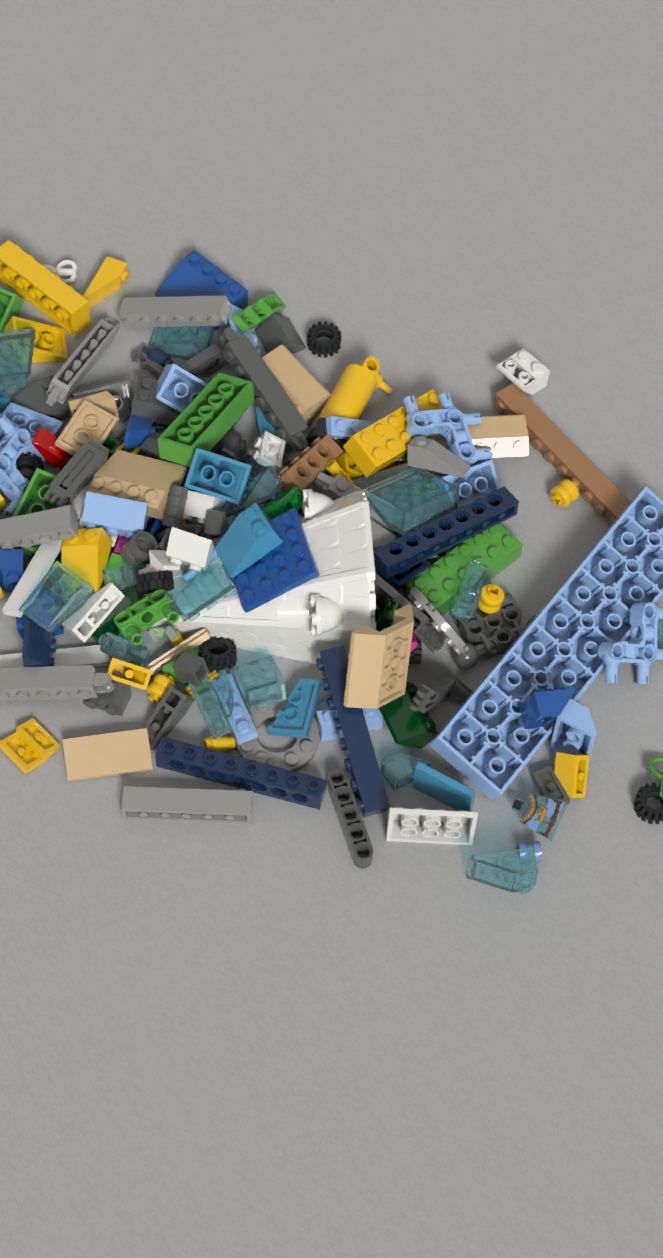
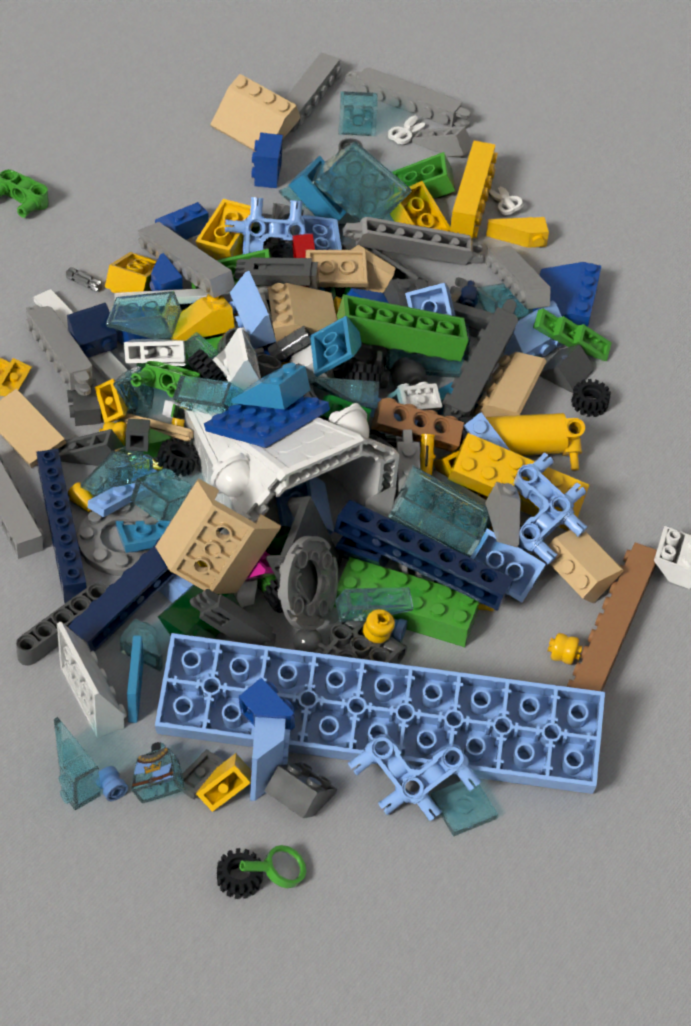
camera: 60 degrees right, 10 degrees down
(610, 726) = (300, 788): none -> dark grey slope

